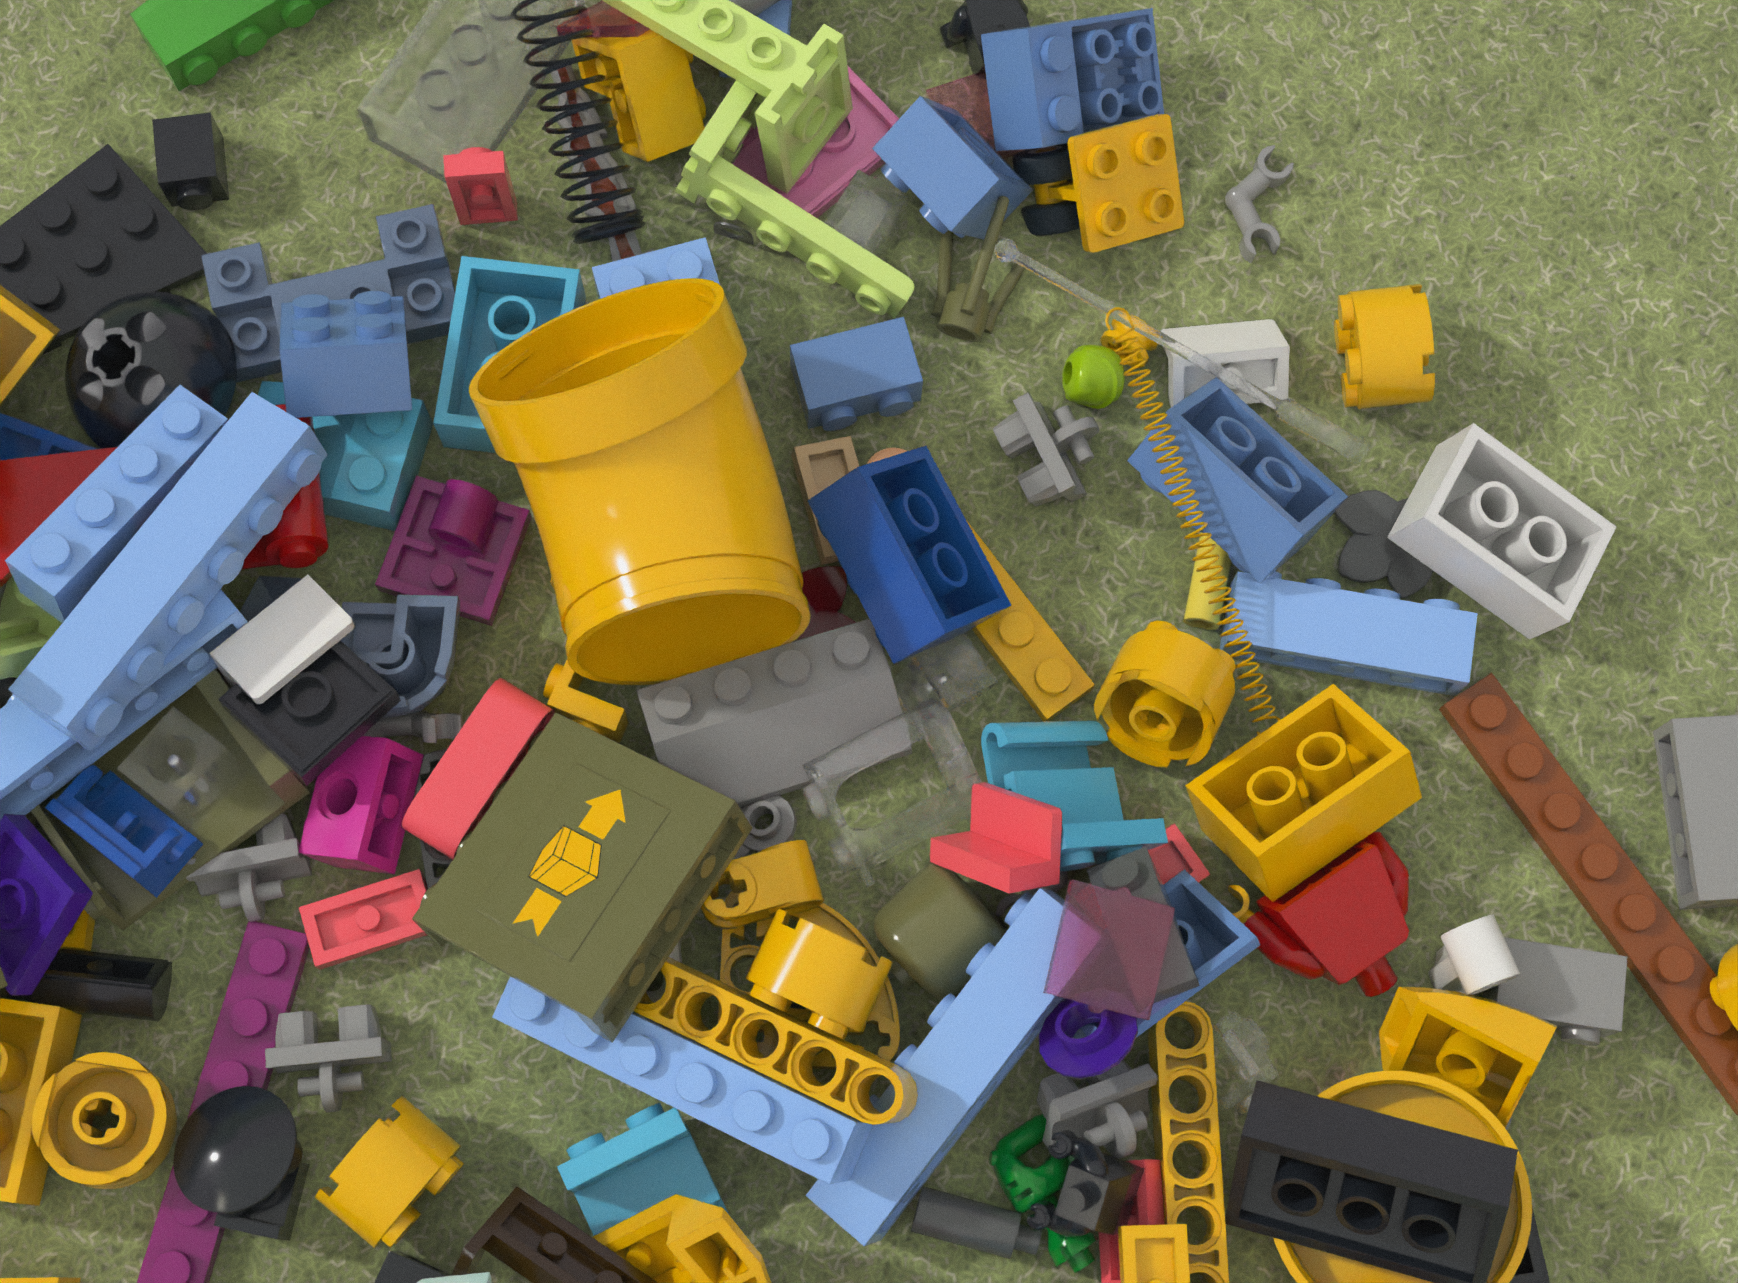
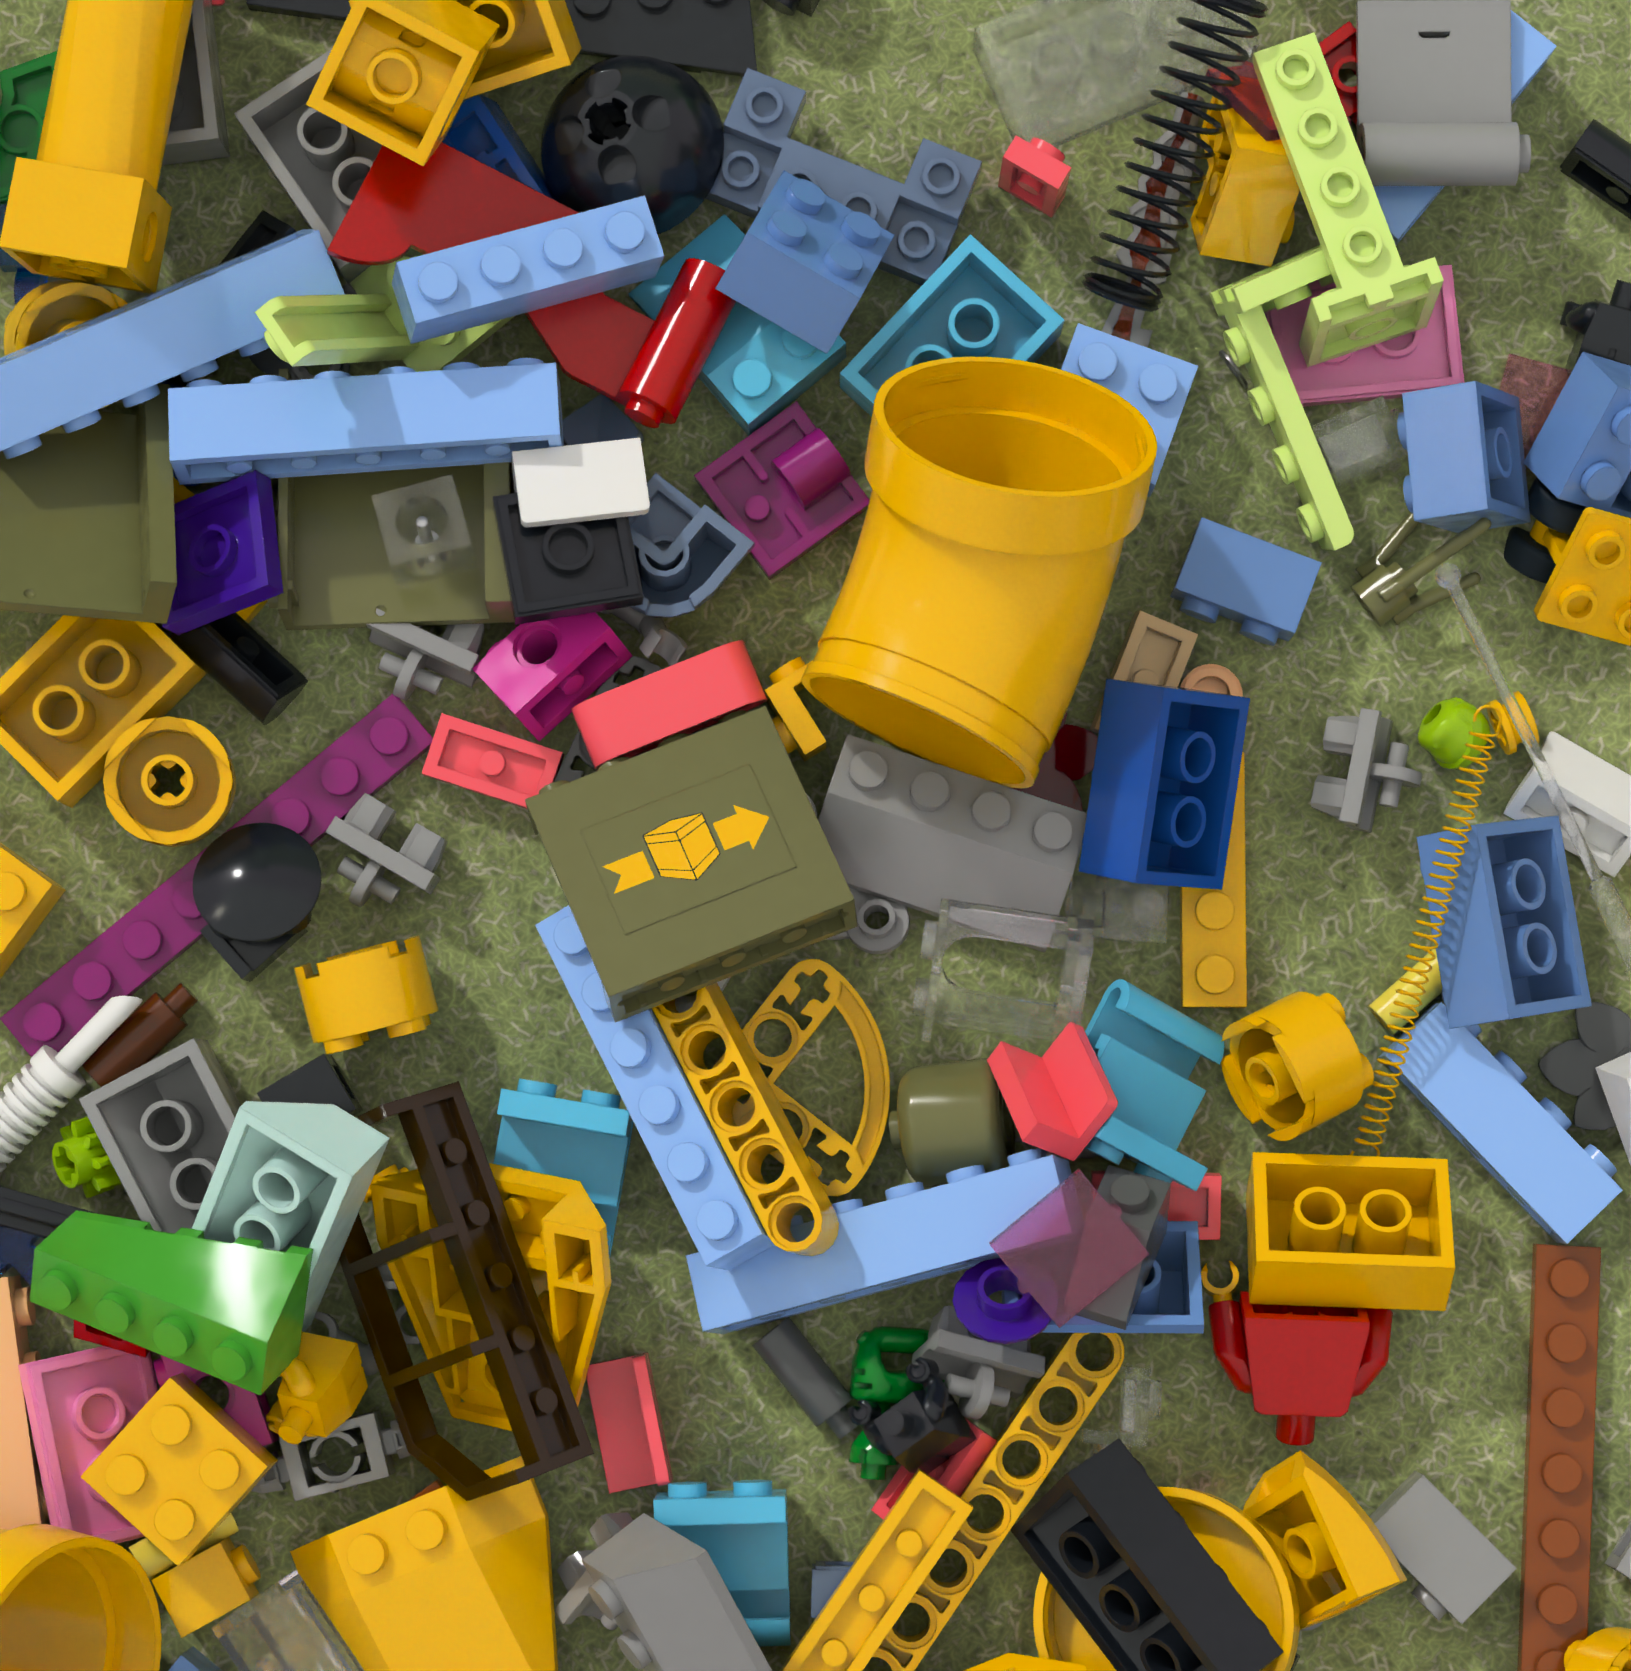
camera: 45 degrees right, 10 degrees up
(125, 828) = (345, 547): blue hinge -> none
(170, 571) = (529, 363): light blue brick -> none
(768, 880) = (844, 983): yellow piece -> none
(817, 973) = (823, 1086): yellow brick -> none
(1473, 958) = (1382, 1475): white piece -> none

